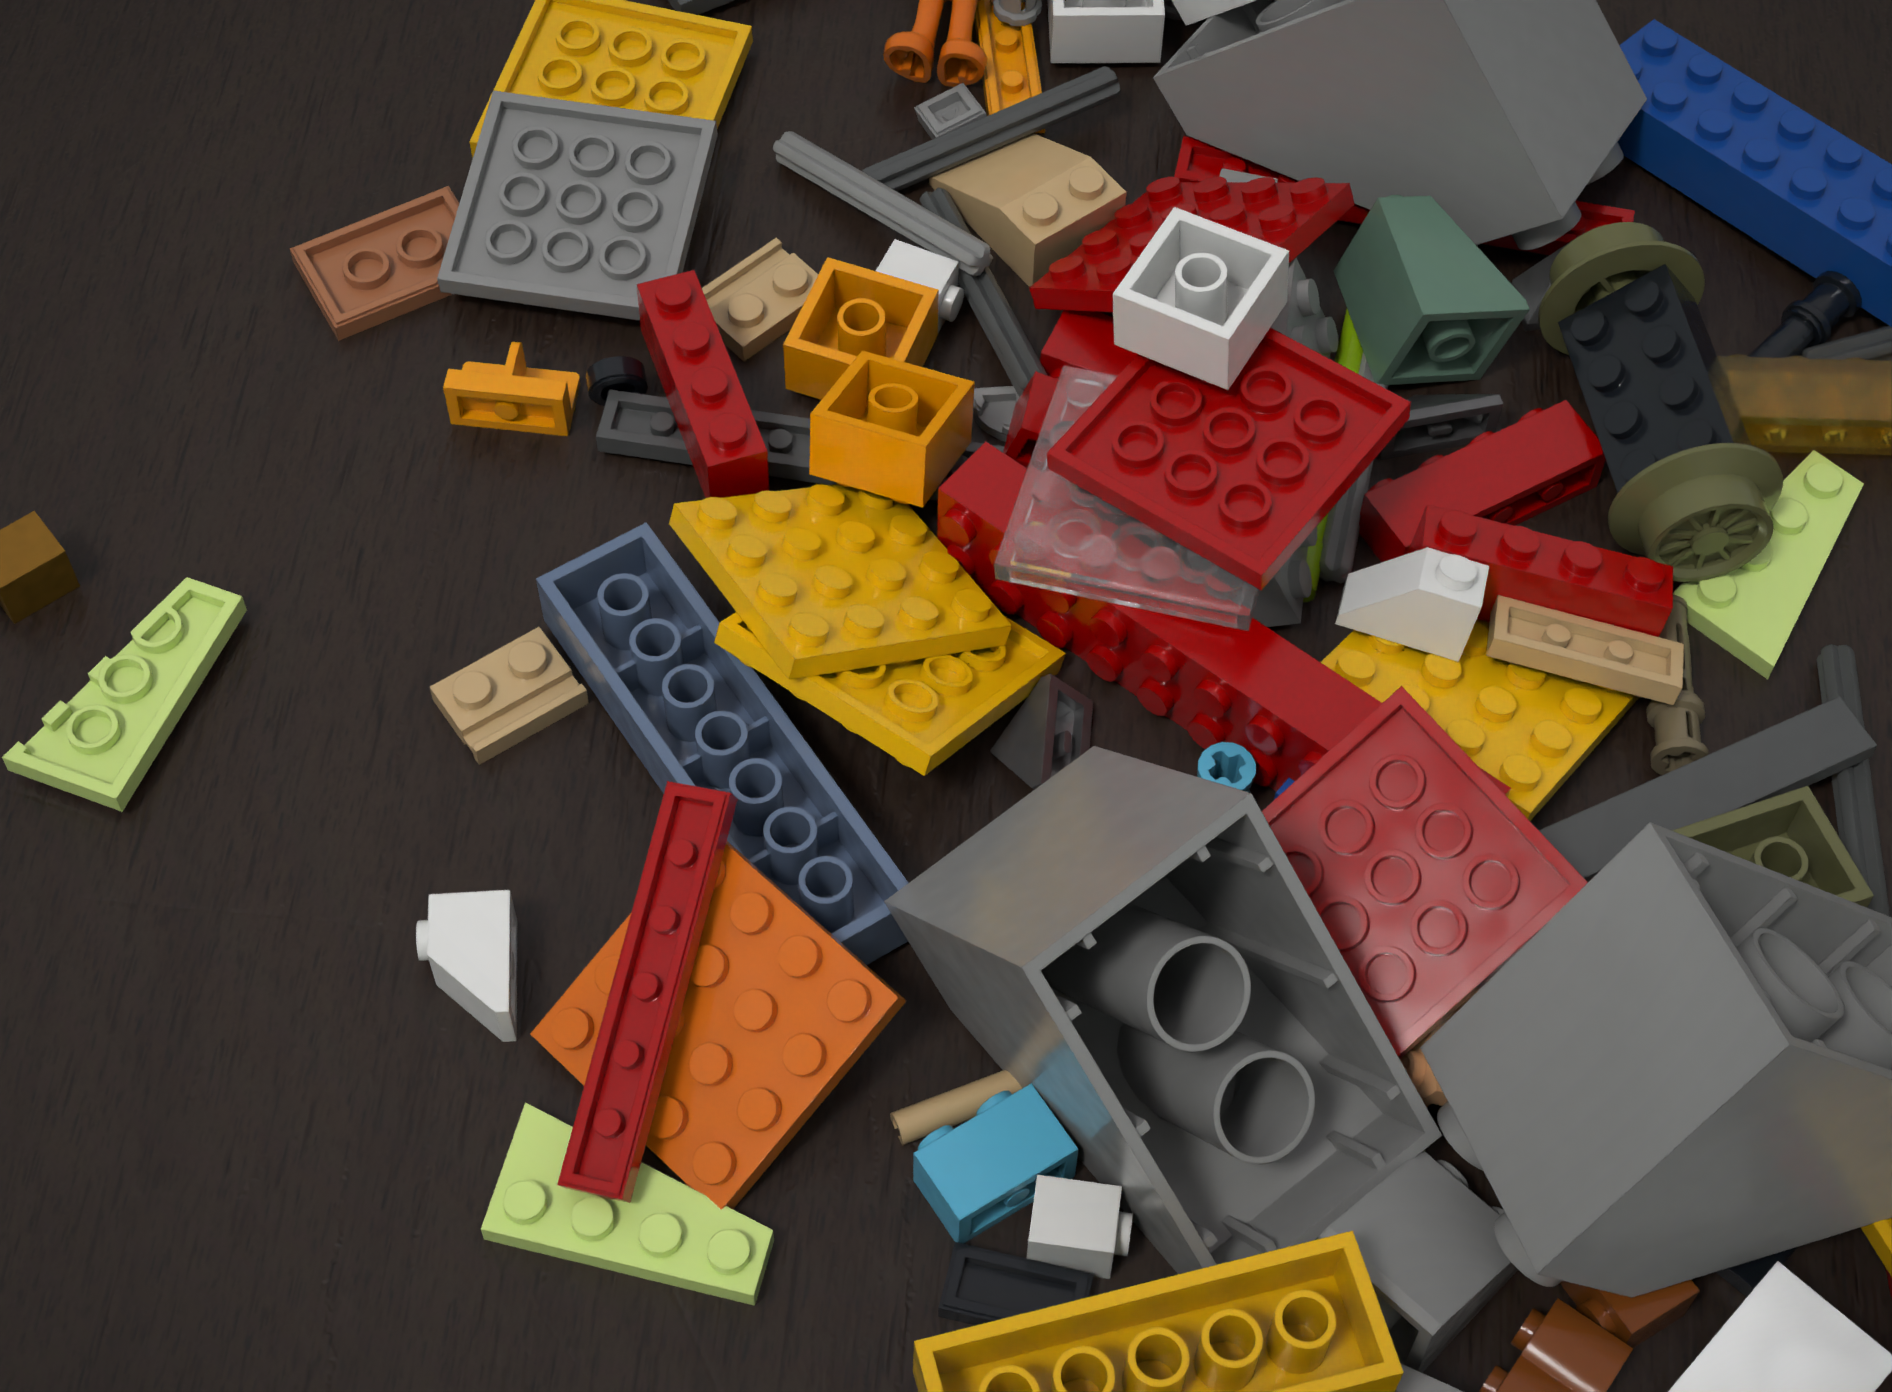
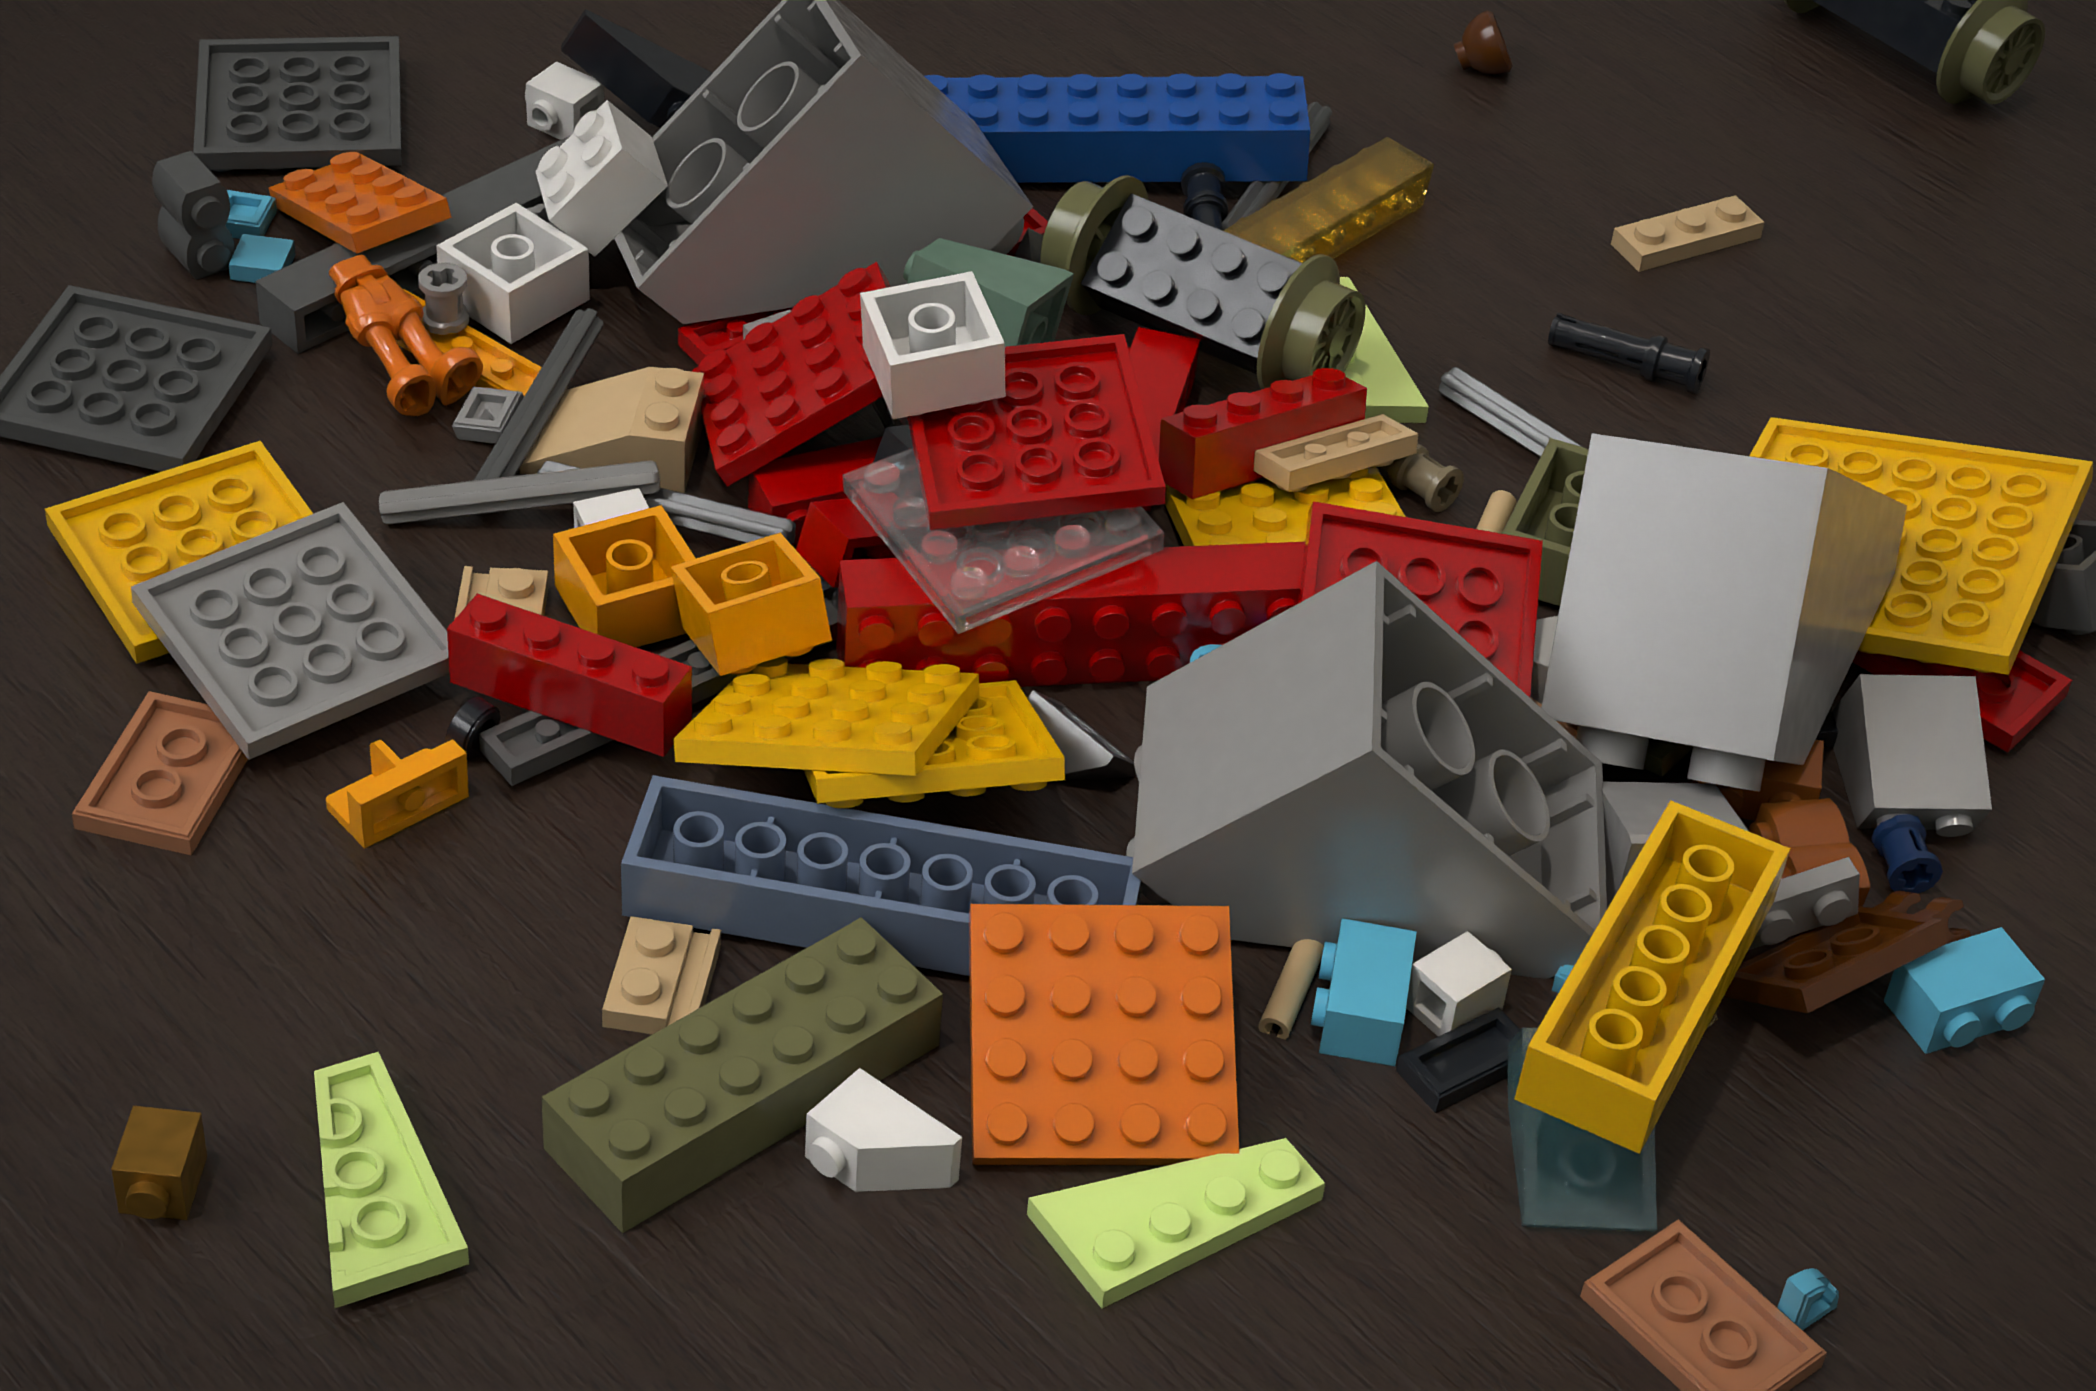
camera: 50 degrees left, 15 degrees down
(448, 819) = (738, 1073): none -> olive brick
(648, 992) = (1058, 1037): red tile -> none
(1417, 601) = (1221, 479): white slope -> none
(1741, 774) = (1498, 462): dark grey tile -> none

